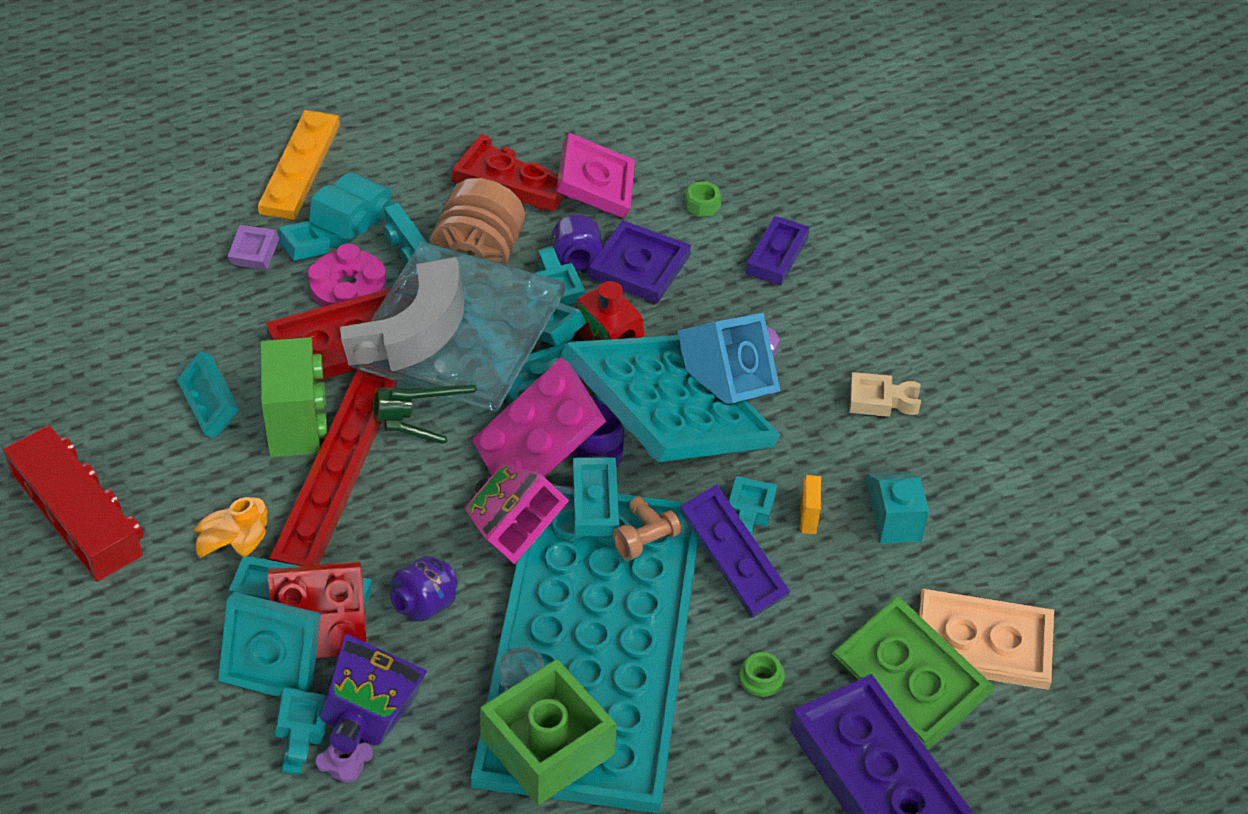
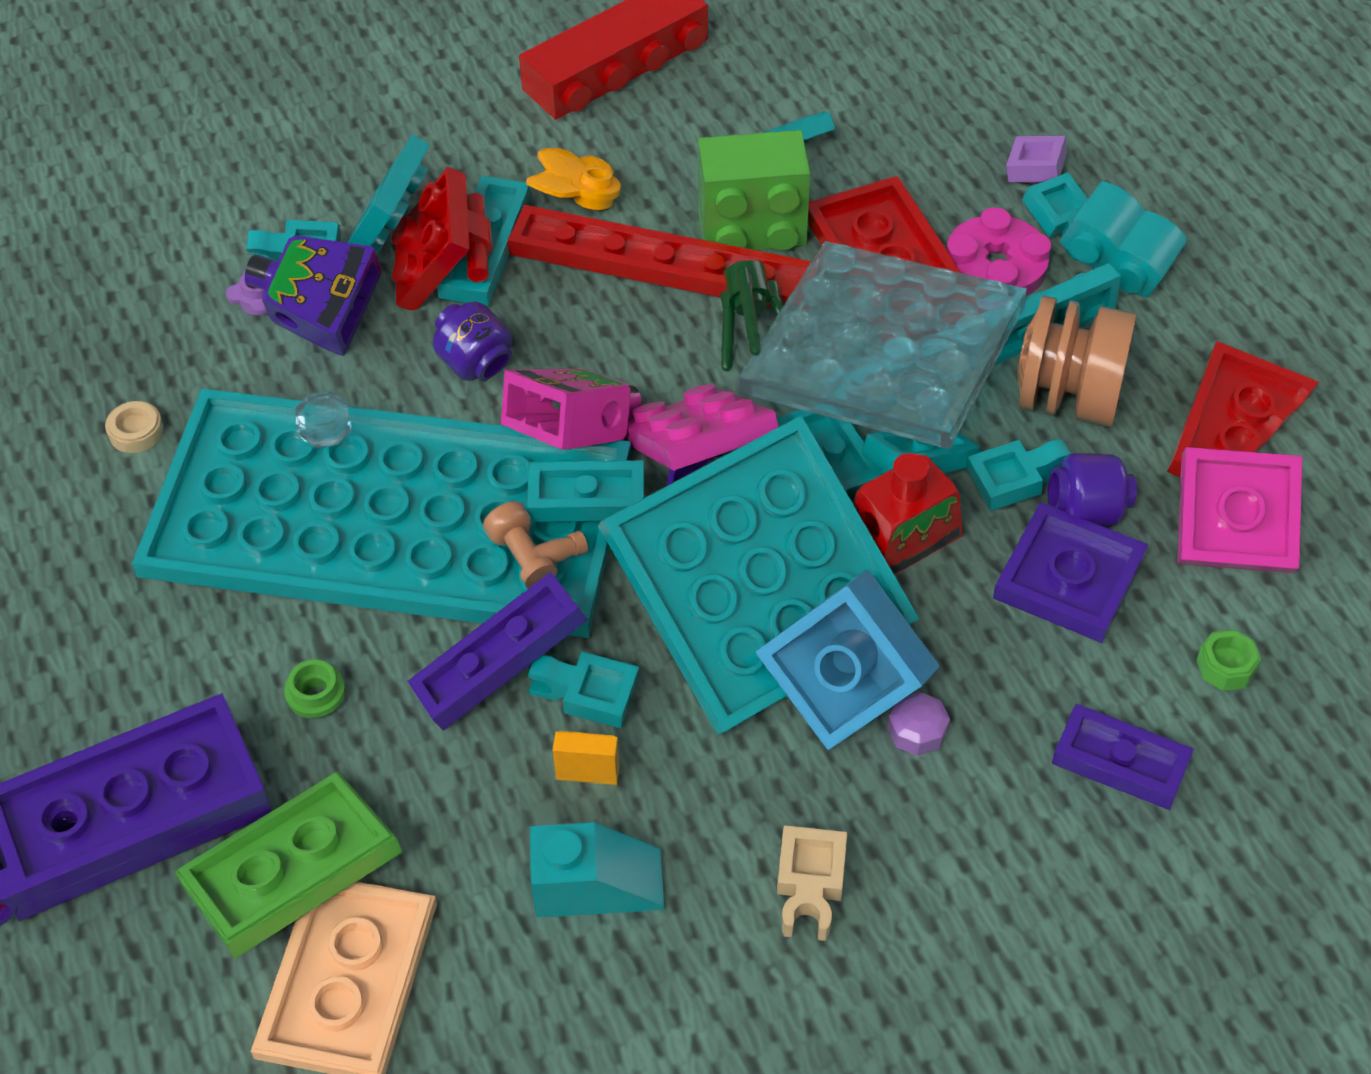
camera: 95 degrees right, 5 degrees up
(299, 165) = (1222, 198): light orange plate -> none
(418, 329) = (855, 285): light grey arch -> none
(547, 731) = (214, 427): bright green brick -> none

